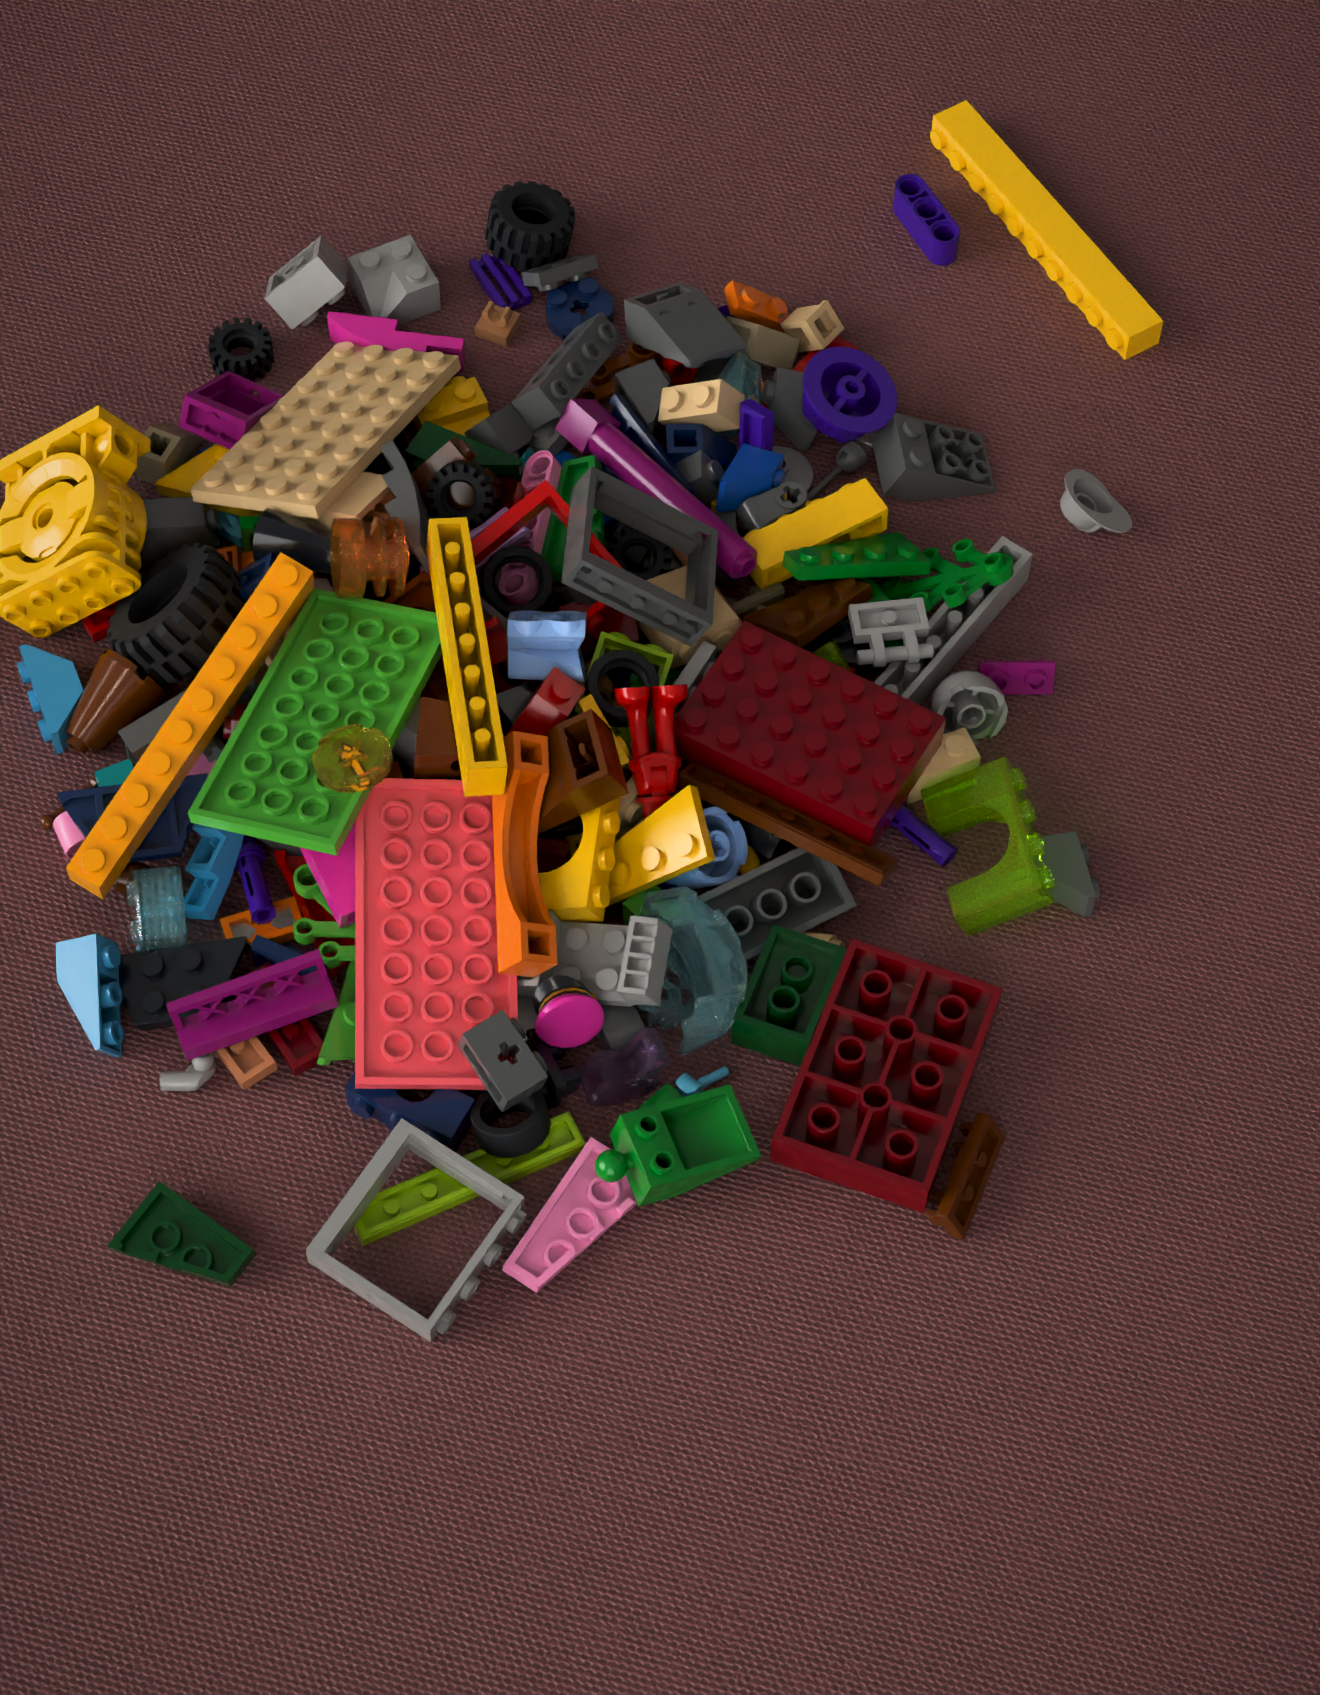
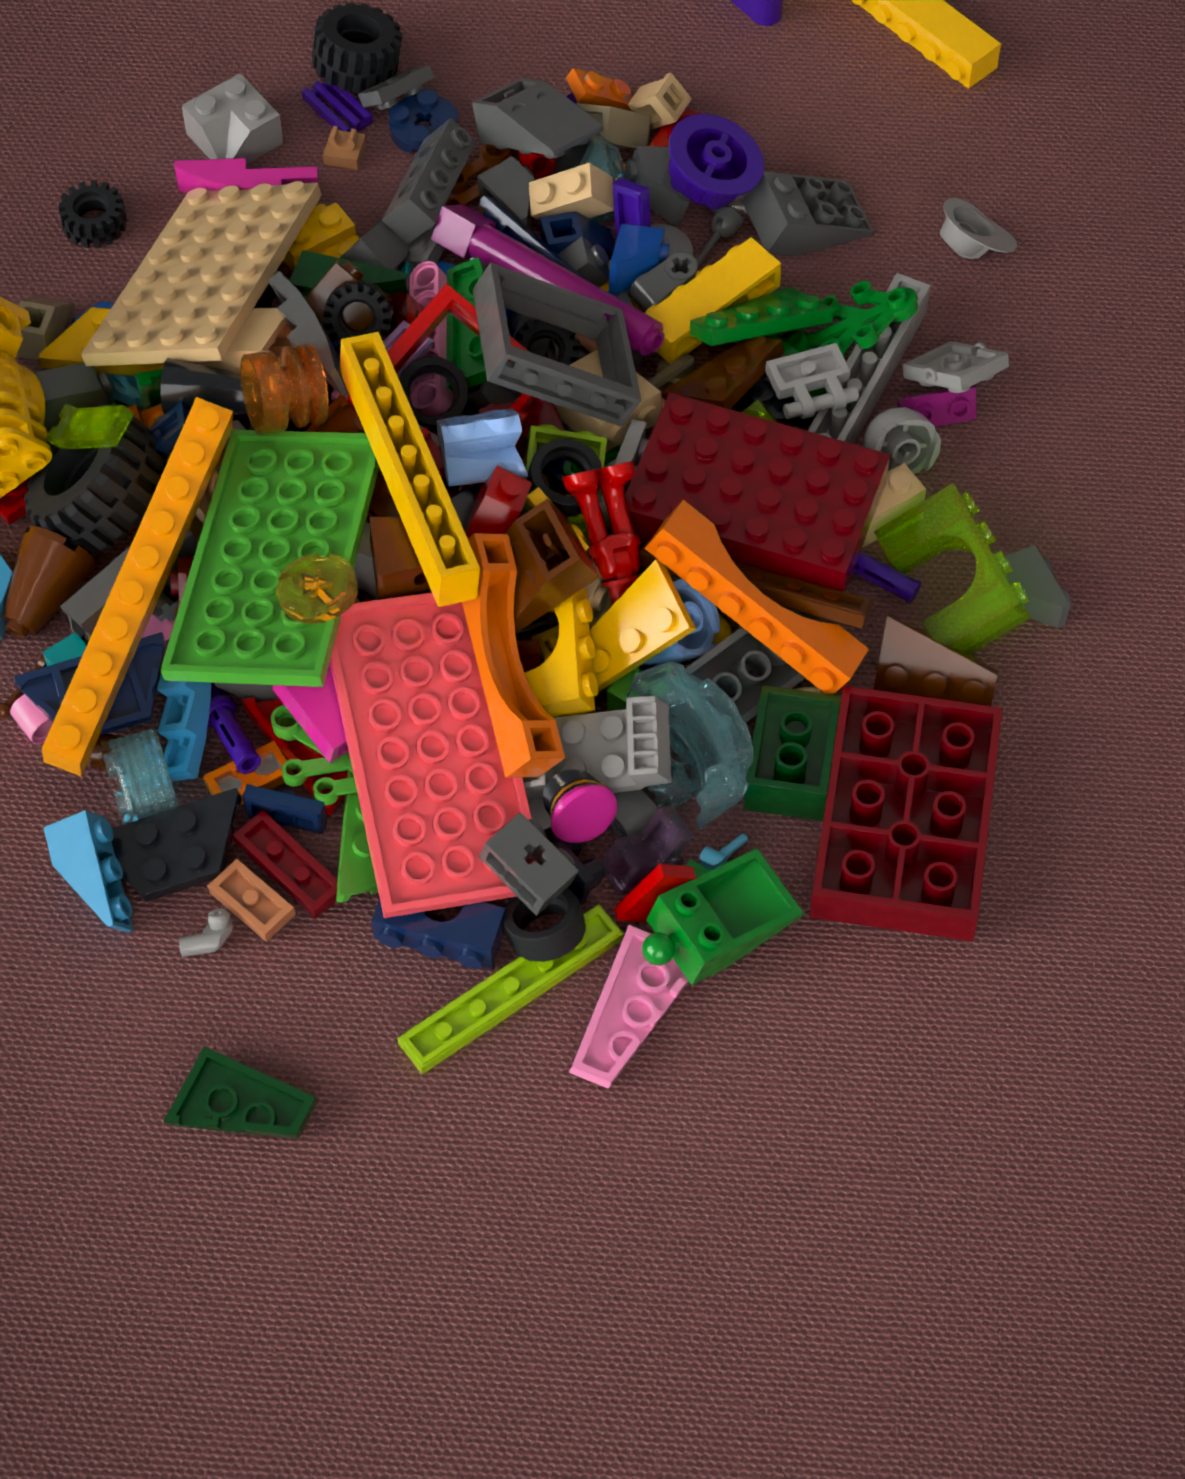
camera: 10 degrees left, 0 degrees up
(179, 563) = (90, 427): none -> clear neon green plate
(226, 408) = (93, 272): magenta window -> none
(254, 1009) = (261, 858): magenta fence -> none
(307, 283) = (146, 137): light grey slope -> none
(368, 1184) = (503, 978): light grey window -> none
(627, 1099) = (641, 899): none -> red tile
(832, 899) = (815, 649): none -> orange arch
(942, 937) = (924, 667): none -> reddish brown wing
(967, 1176) = (1007, 897): reddish brown plate -> none
(1041, 638) = (956, 366): none -> light grey plate

